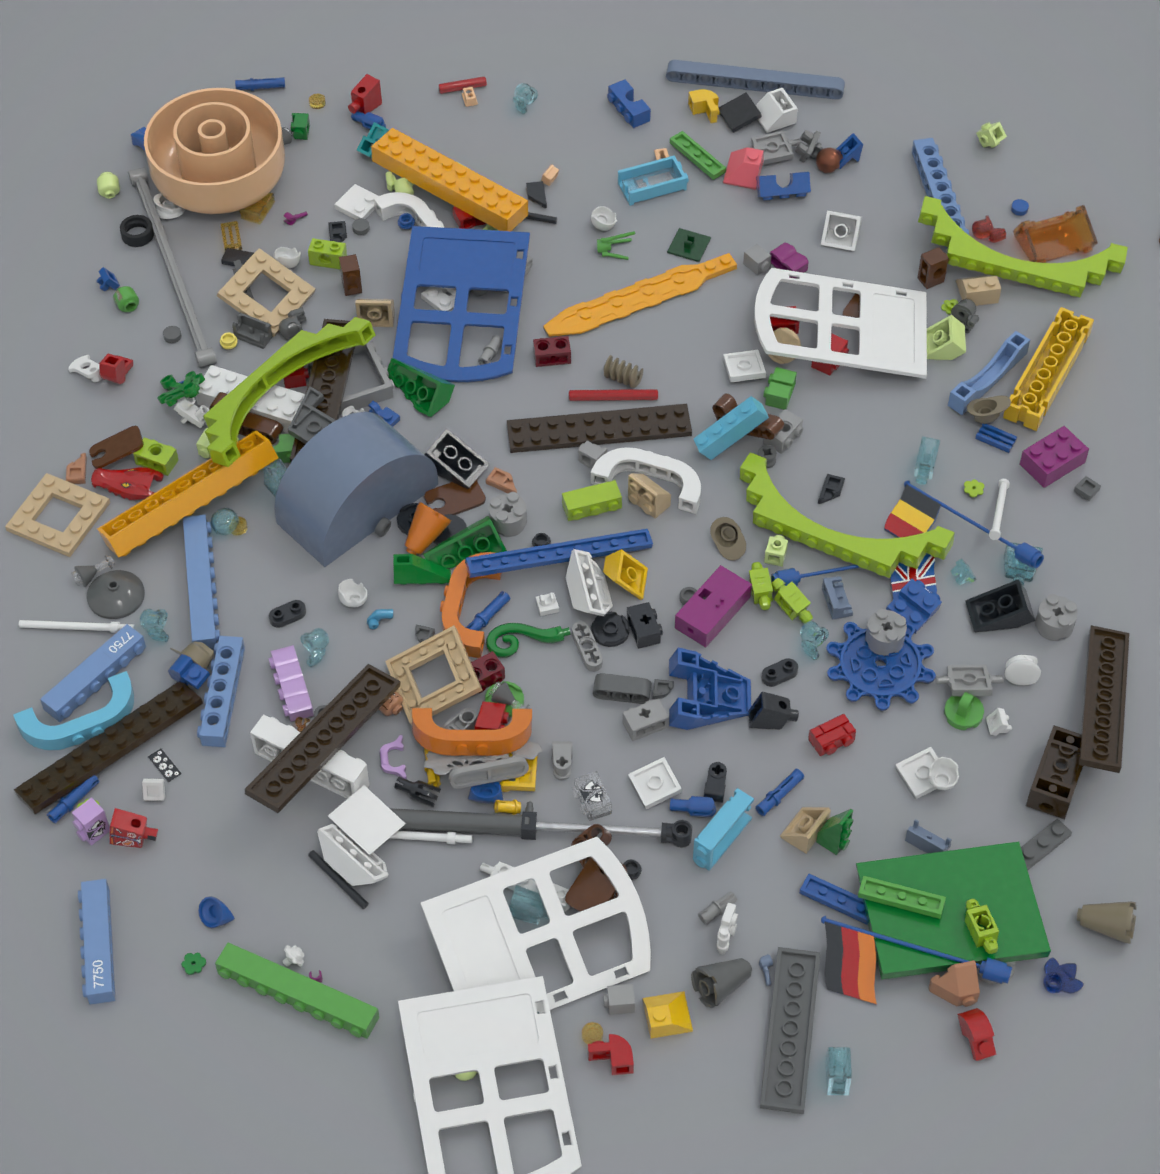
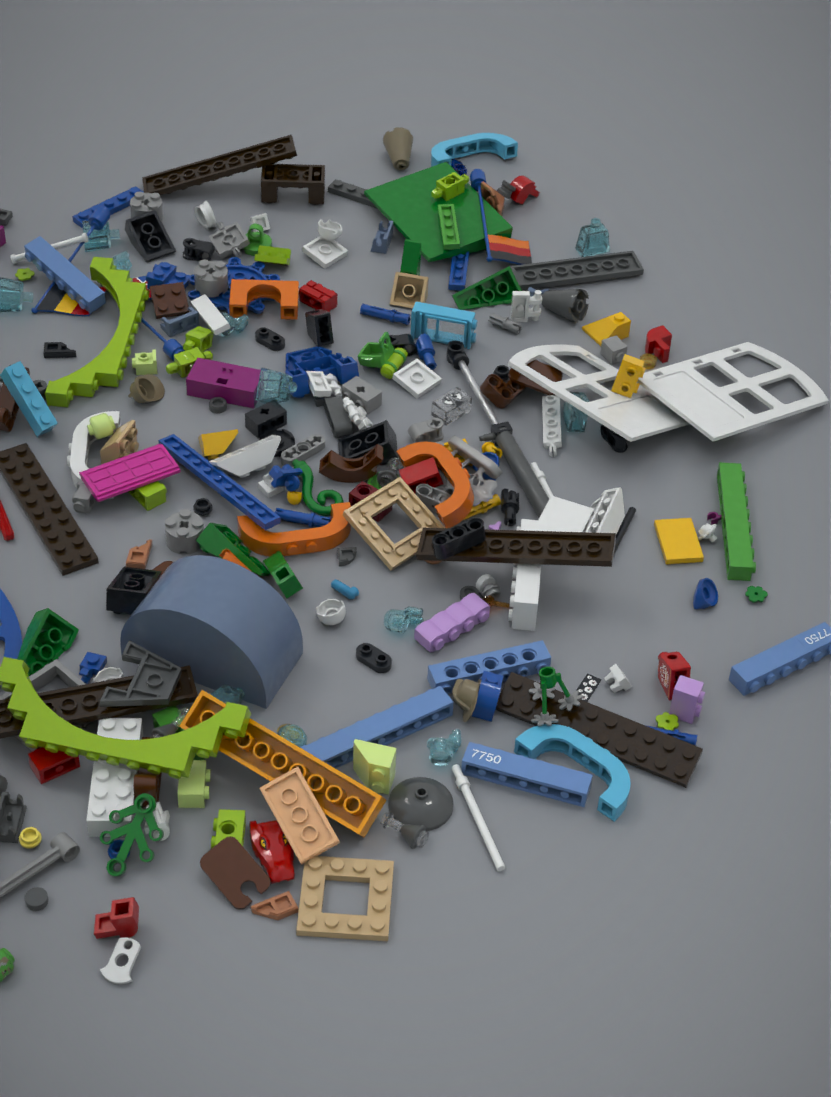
camera: 115 degrees left, 10 degrees down
(133, 491) = (299, 815): none -> light nougat tile
(147, 691) = (547, 684): none -> plant
(157, 561) = (374, 765): none -> yellowish green slope
(266, 428) = (170, 728): none -> piece
(300, 927) = (678, 541): none -> yellow tile
(354, 689) = (458, 538): none -> black beam
(522, 616) = (294, 497): none -> yellow hinge
(535, 960) = (627, 376): none -> yellow brick
(536, 669) = (351, 470): none -> reddish brown arch
(547, 616) = (285, 477): none -> blue hips
(561, 700) = (363, 441): none -> black slope
(598, 486) = (129, 472): none -> dark pink piece
(605, 705) = (356, 414): none -> white plate
(667, 635) = (274, 386): none -> clear light blue torso
(670, 680) = (323, 385): none -> white plate
(672, 478) = (101, 426): none -> yellowish green head
(697, 757) = (382, 356): none -> bright green piece
(783, 917) = (488, 292): none -> green wedge
(824, 616) = (210, 314): none -> white tile
(836, 696) = (245, 291): none -> orange arch
(874, 595) = (169, 300): none -> reddish brown plate
(921, 713) = (273, 255): none -> lime bracket
(940, 506) = (64, 274): none -> medium blue brick
(961, 647) = (197, 250): none -> black piece
(973, 1005) = (506, 189): none -> dark grey wheel
(1082, 590) = (114, 204): none -> blue plate
(1103, 995) = (472, 144): none -> medium azure arch

